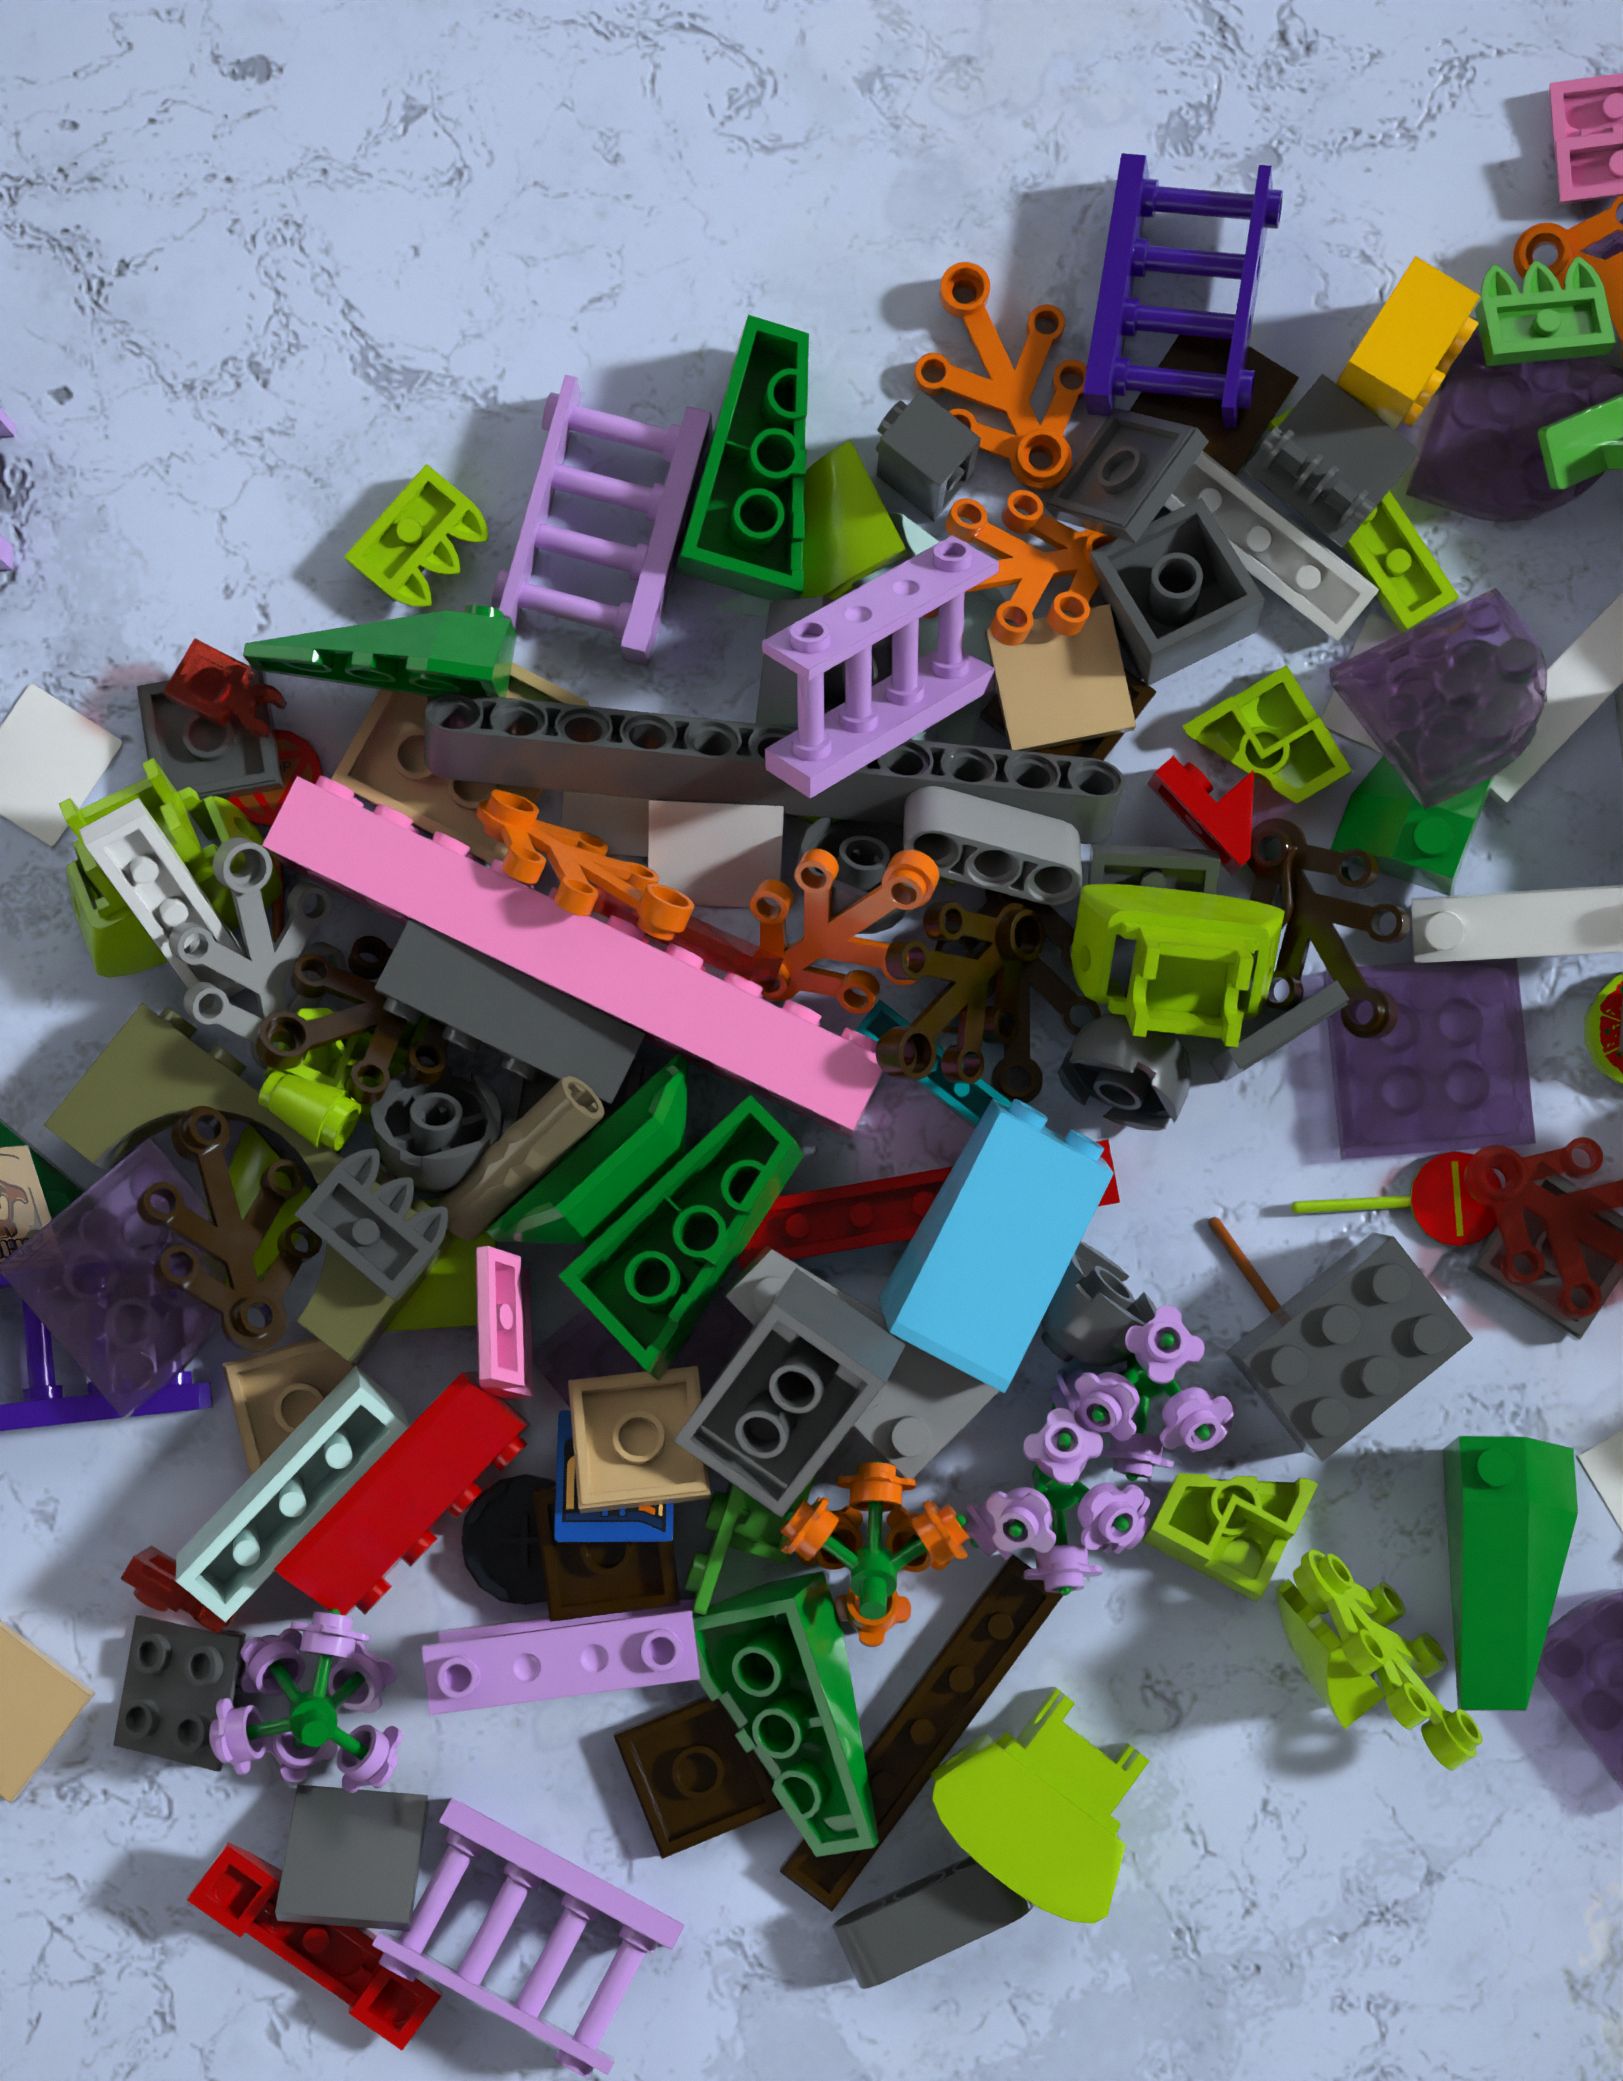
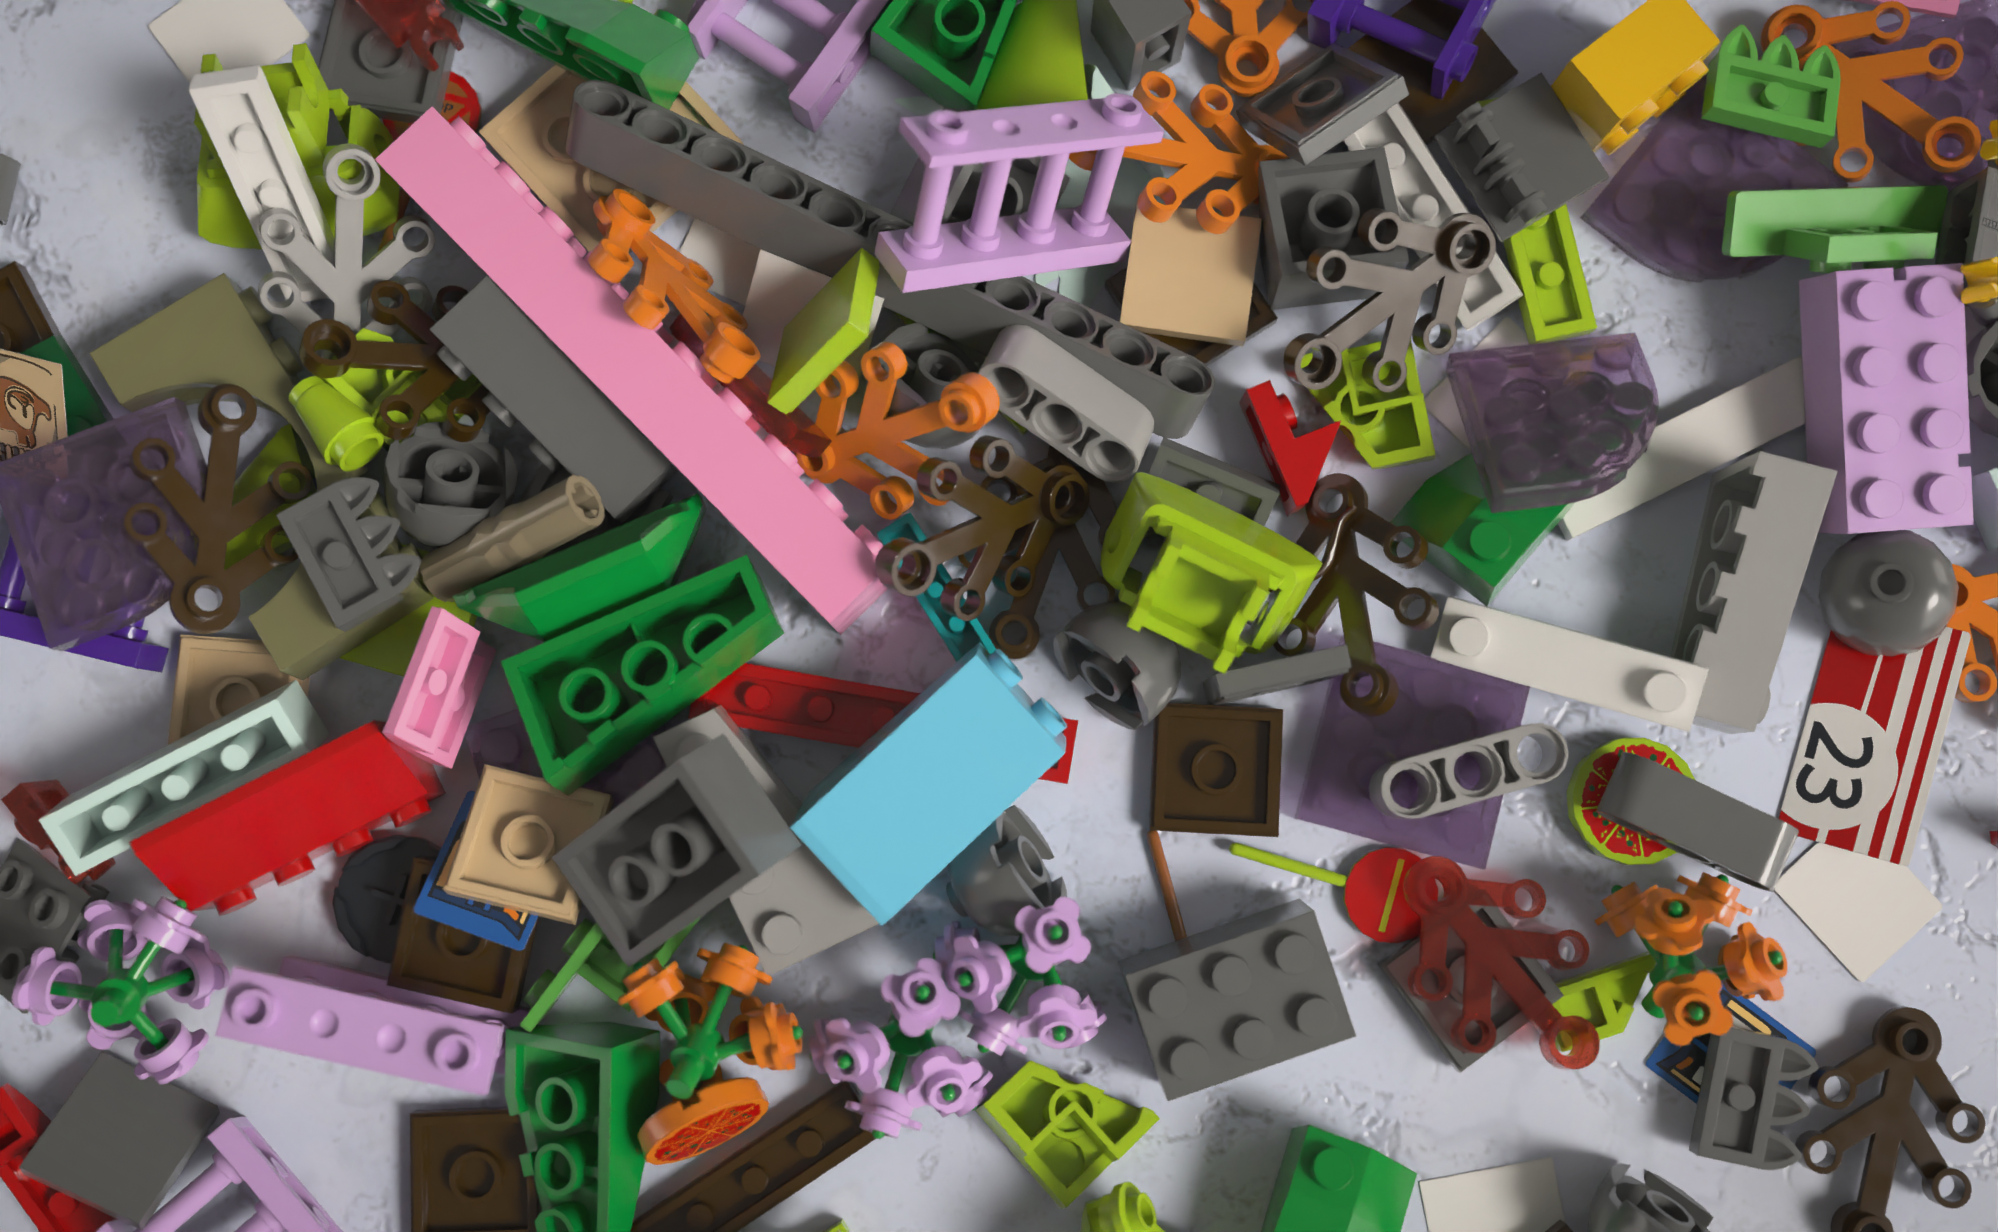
camera: 25 degrees right, 0 degrees up
(745, 859) = (825, 332): none -> lime tile
(887, 1652) = (722, 1114): none -> orange tile
(1252, 1140) = (1216, 770): none -> dark brown tile
(1264, 636) = (1396, 298): none -> plant
(1517, 1049) = (1498, 771): none -> light grey beam

